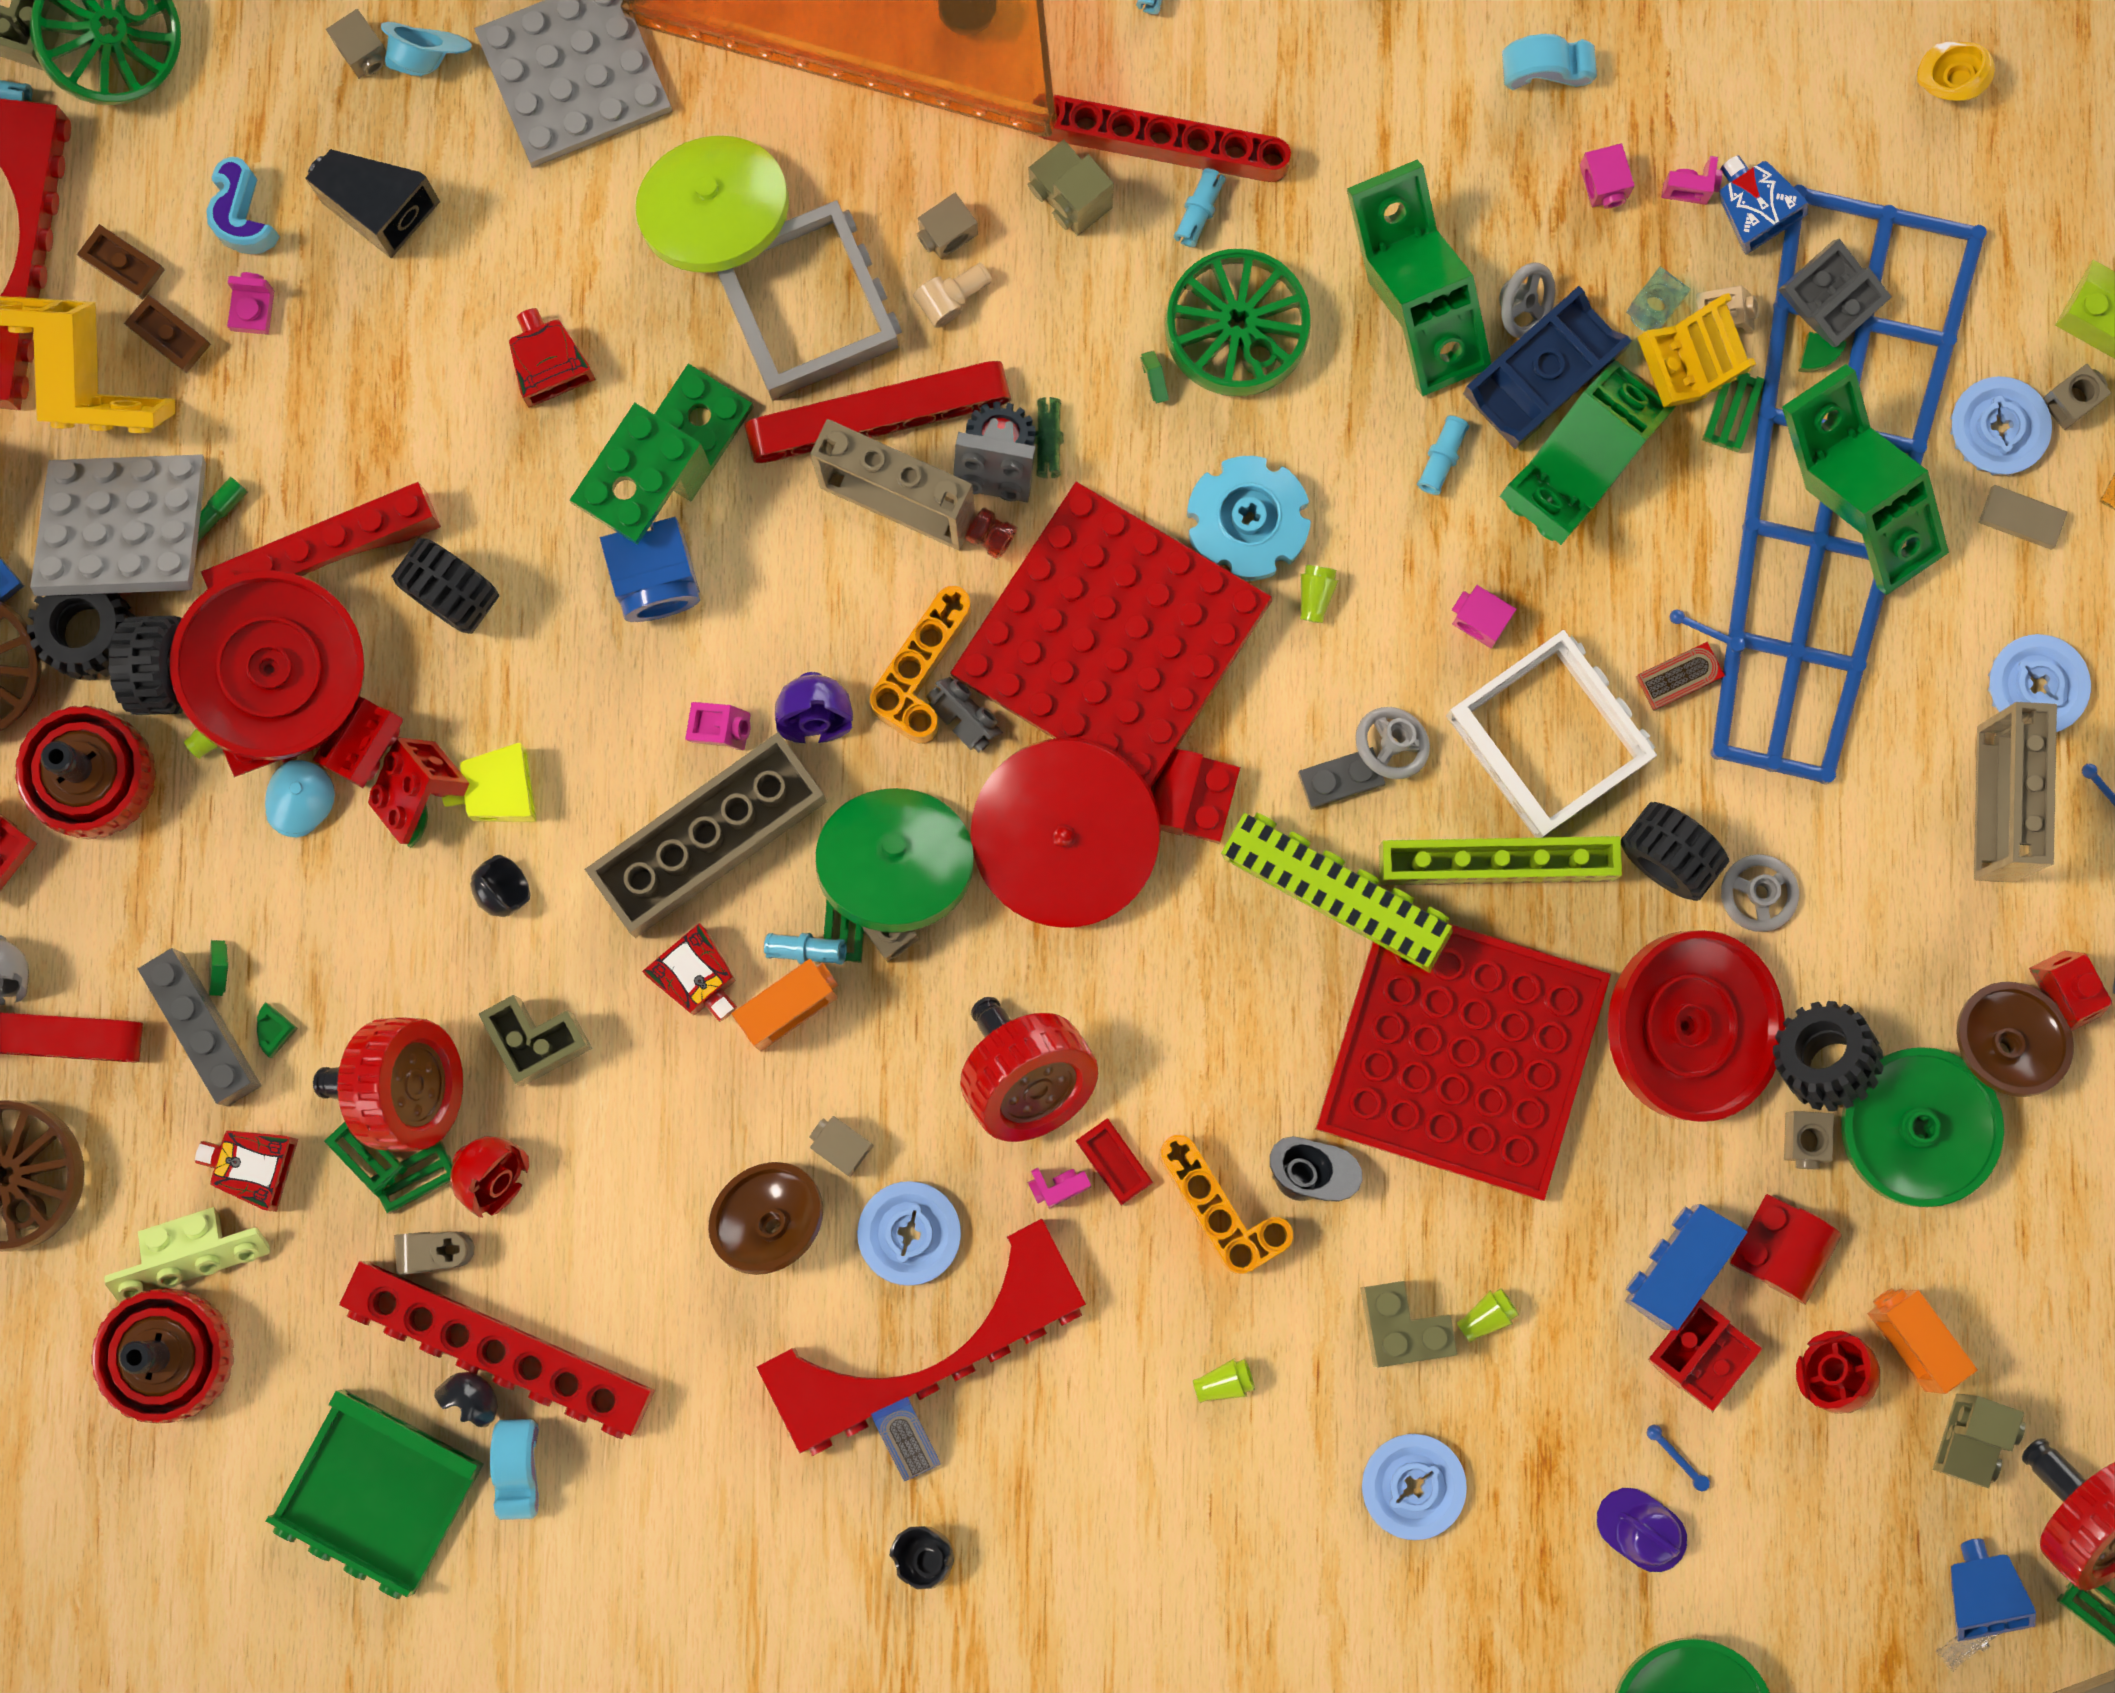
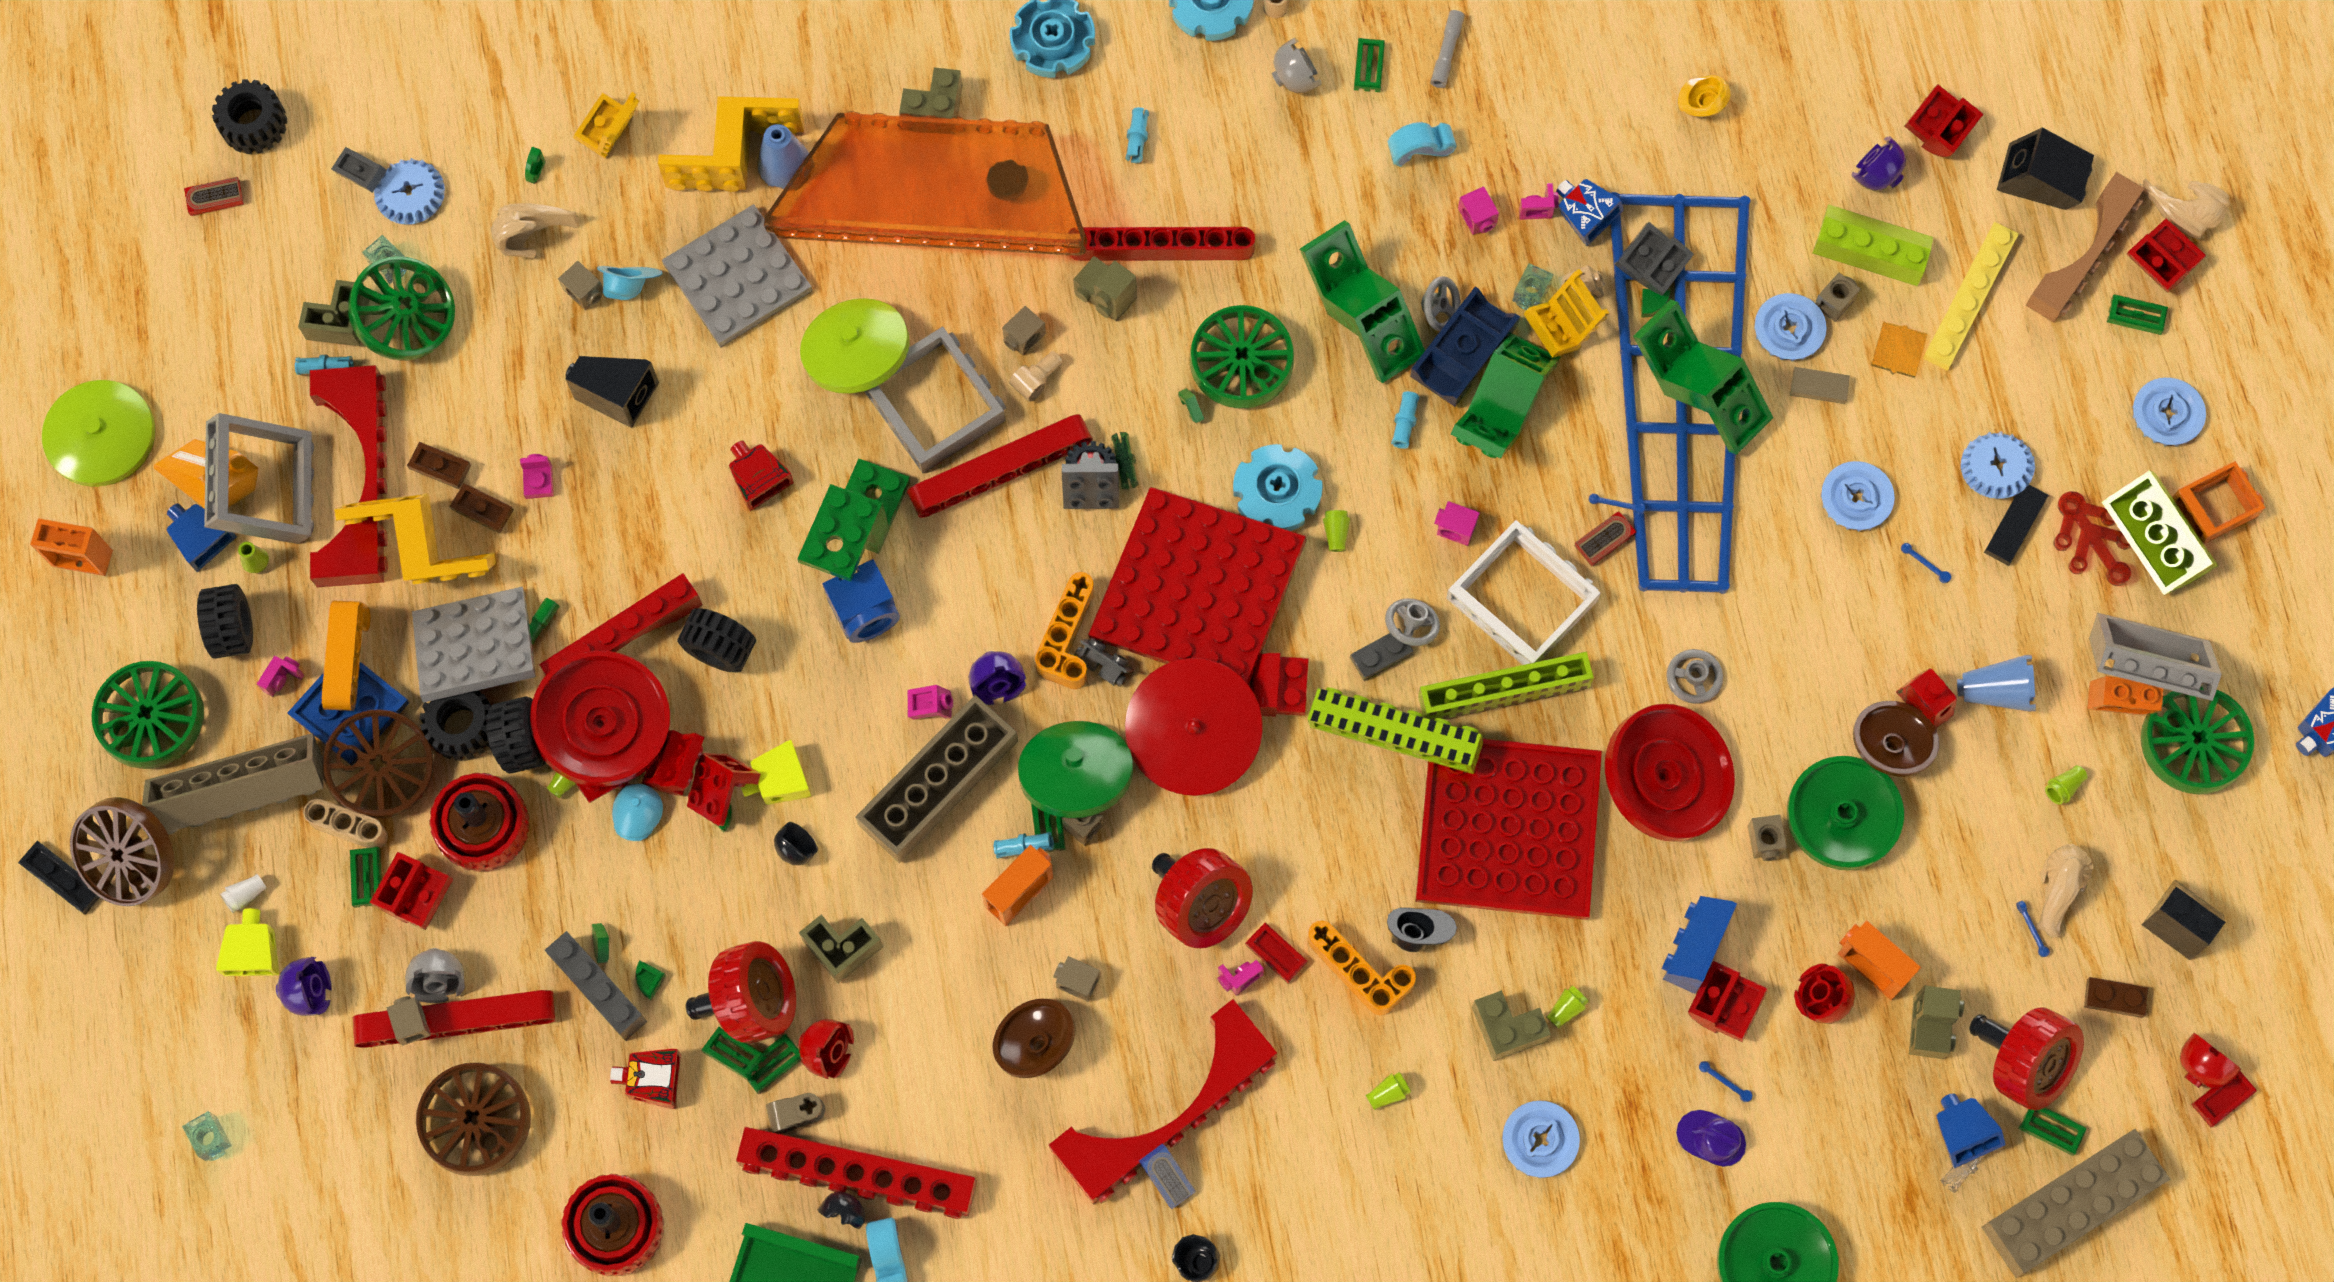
camera: 10 degrees left, 10 degrees down
(185, 1251) = (616, 1148): yellowish green bracket -> none
(230, 207) = (510, 414): medium azure animal -> none
(694, 974) = (947, 879): torso -> none
(893, 484) = (1019, 521): dark tan window -> none
(894, 1209) = (1124, 1017): light blue gear -> none
(996, 536) = (1097, 533): clear red wheel -> none
(1199, 207) = (1198, 285): medium azure pin -> none
(1674, 851) = (1627, 655): black tyre -> none
(1743, 380) = (1604, 330): green tile -> none
(1786, 1248) = (1769, 917): red brick -> none
(1844, 1079) = (1780, 787): black tyre -> none
(2015, 792) = (1855, 566): dark tan window -> none

